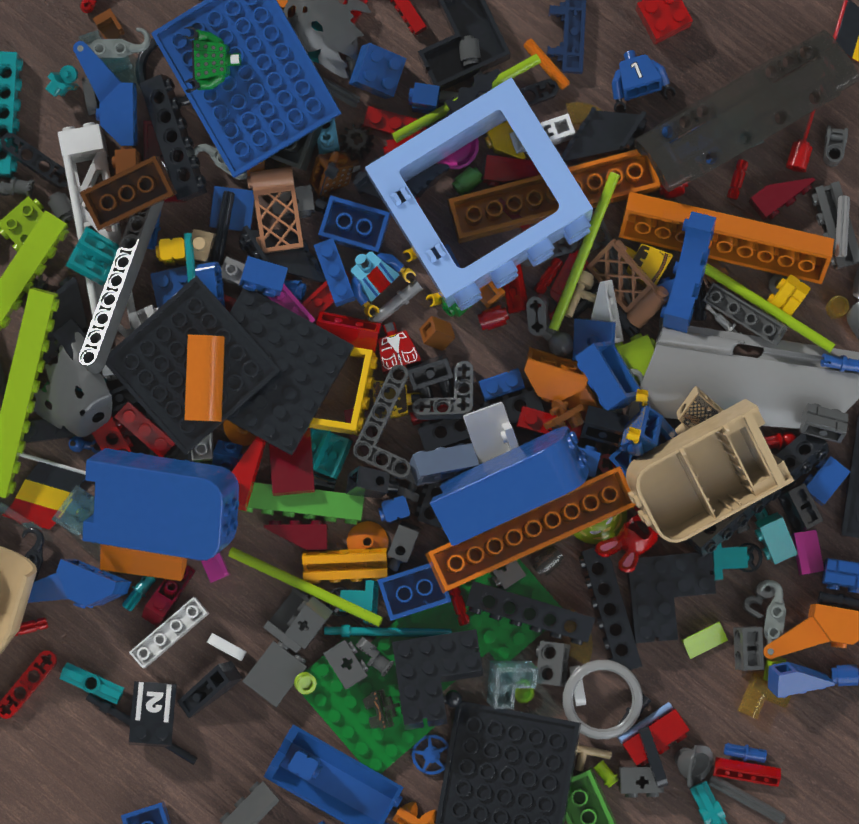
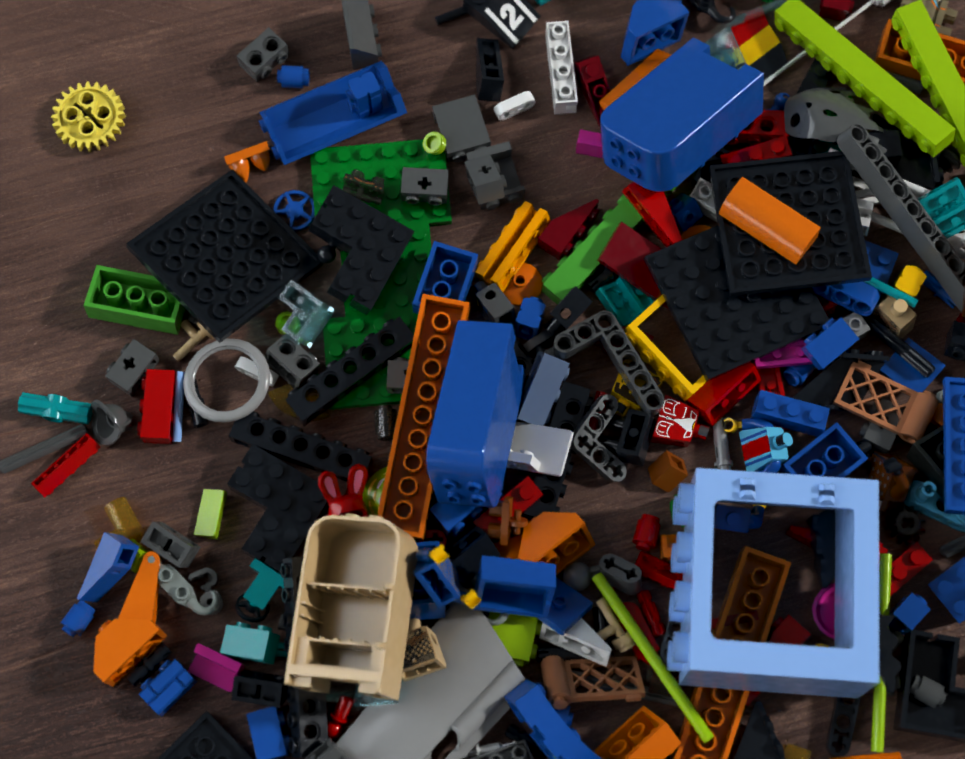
camera: 120 degrees right, 10 degrees down
(138, 592) = (614, 67): teal axle -> none
(305, 586) = (517, 198): lime piece -> none
(346, 631) = (453, 208): teal bar -> none
(366, 599) = (472, 232): teal piece -> none
(377, 661) = (421, 214): dark grey connector -> none
(459, 606) = (407, 316): red axle -> none
(467, 180) = (796, 600): bright green brick -> none
(501, 385) = (578, 491): blue brick -> none
(558, 130) = (792, 716): white slope -> none
(606, 773) = (162, 342): lime pin -> none
(651, 261) = (597, 717): yellow torso -> none
(653, 757) = (141, 384): black beam -> none
(745, 752) = (83, 476): blue axle -> none

